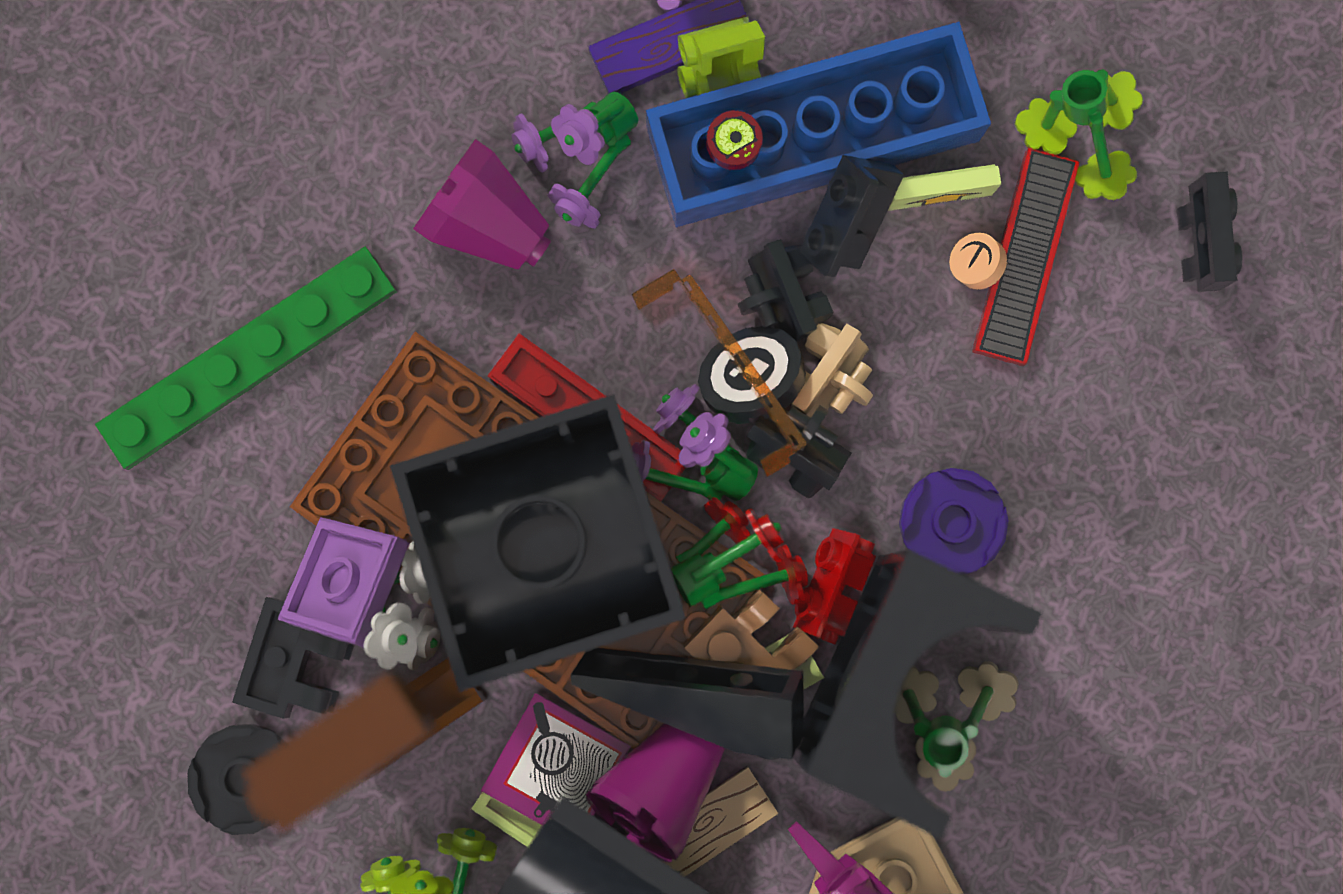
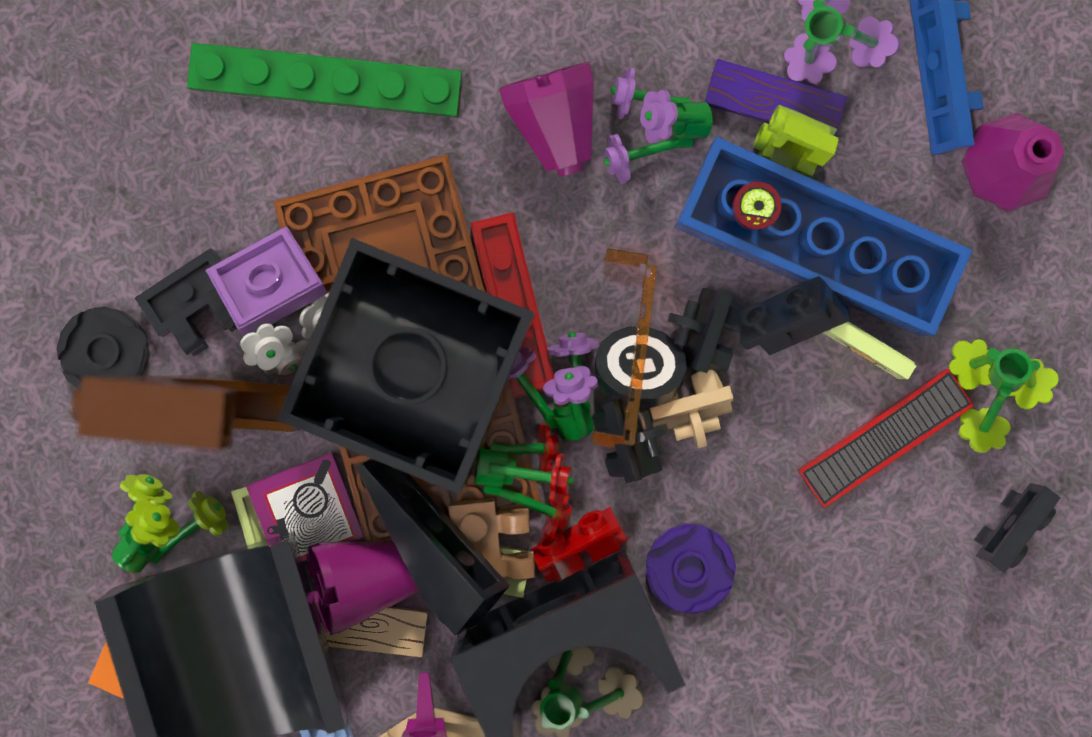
camera: 40 degrees right, 5 degrees up
(978, 261) = (851, 415): light nougat tile -> none

